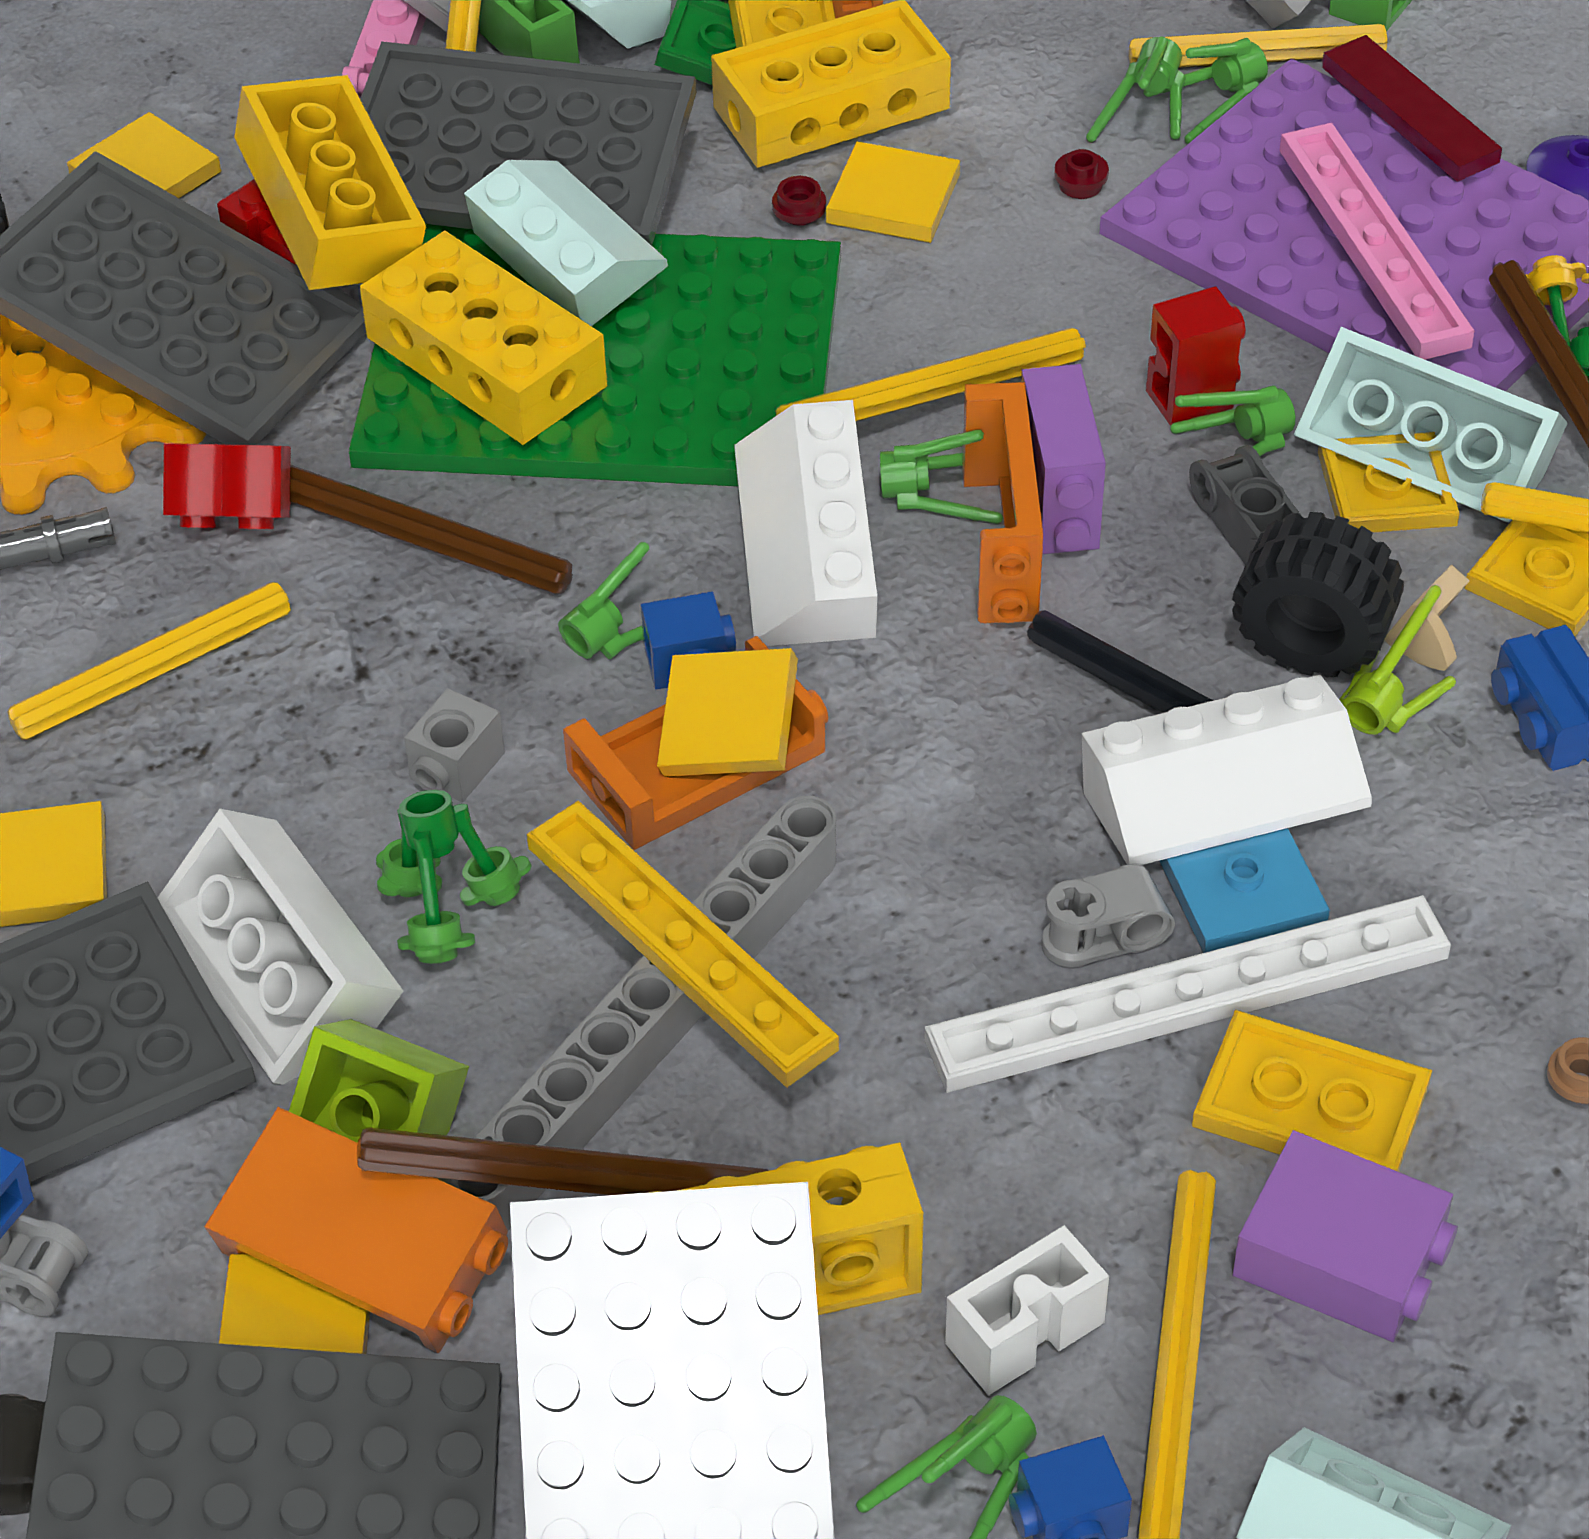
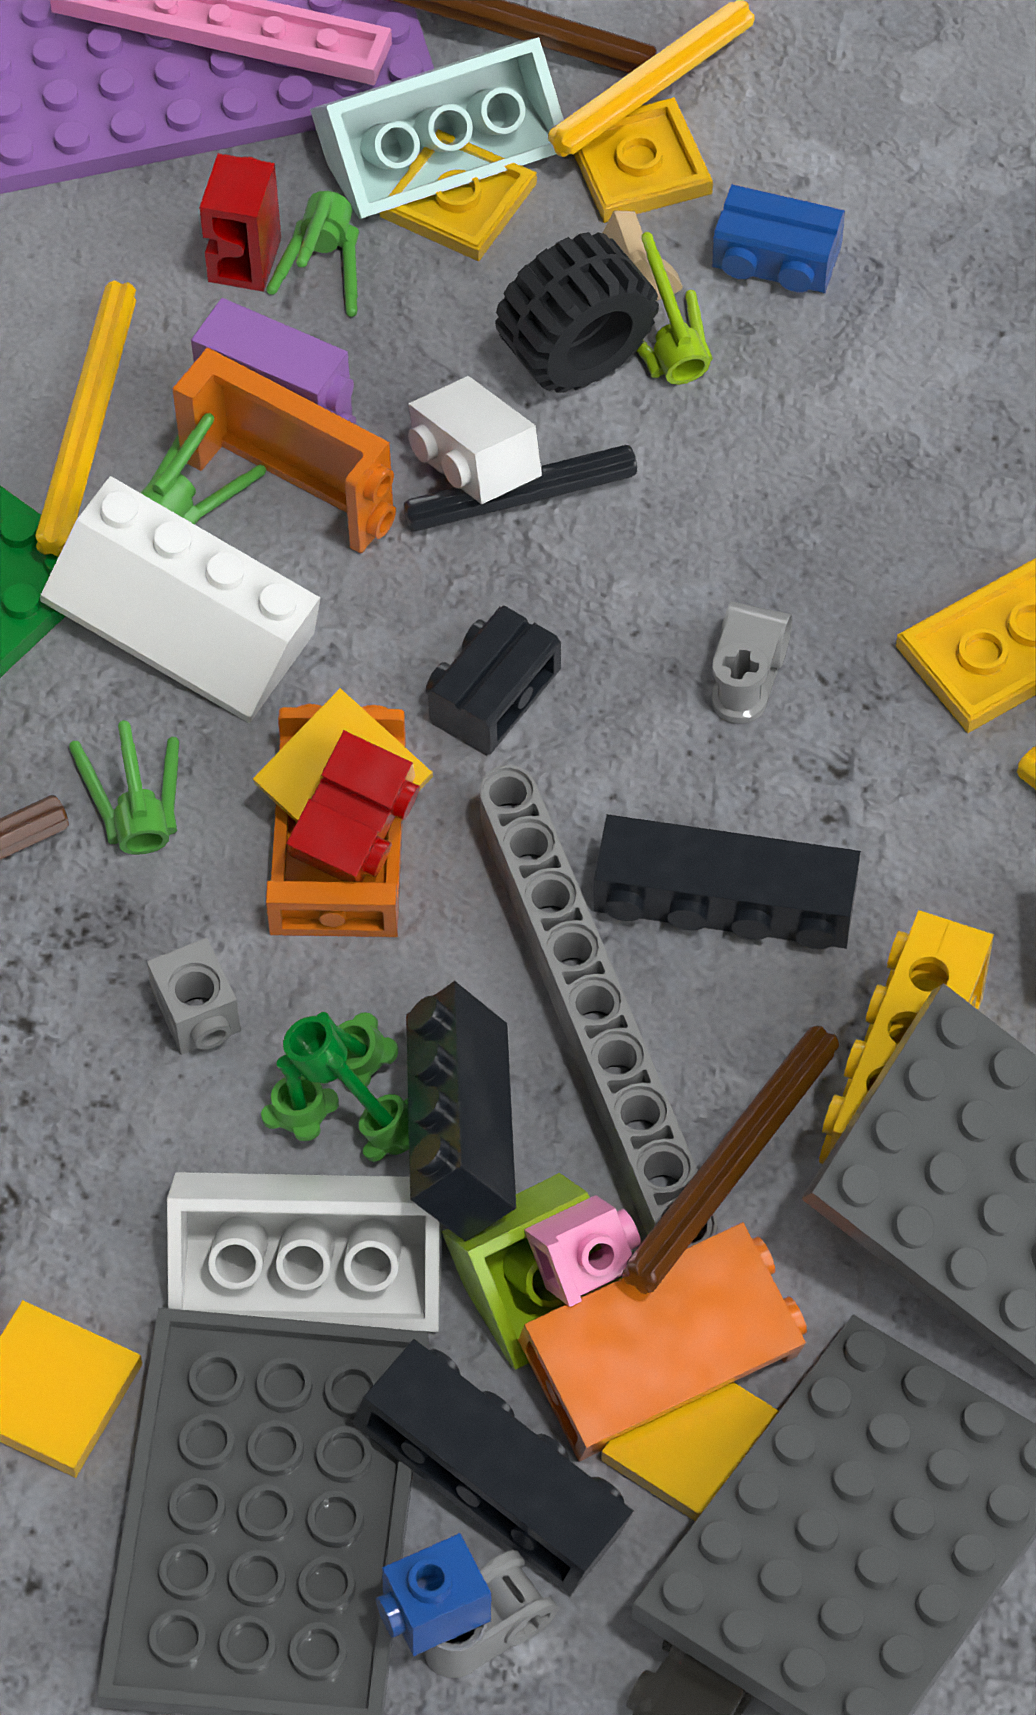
camera: 55 degrees left, 10 degrees up
(144, 1176) = (493, 1465): none -> black brick
(365, 1081) = (564, 1243): none -> bright pink brick
(450, 949) = (459, 1111): none -> black brick
(681, 628) = (220, 764): blue brick -> none
(684, 944) = (570, 947): yellow tile -> none
(688, 726) = (353, 810): none -> red brick
(884, 1055) = (726, 882): none -> black brick
(923, 761) = (493, 679): none -> black brick
(1131, 610) = (474, 439): none -> white brick
(1185, 993) = (852, 650): white tile -> none
(1224, 770) = (681, 492): white slope -> none
(1239, 497) = (426, 299): dark grey piece -> none
(1245, 890) = (778, 553): dark azure plate -> none

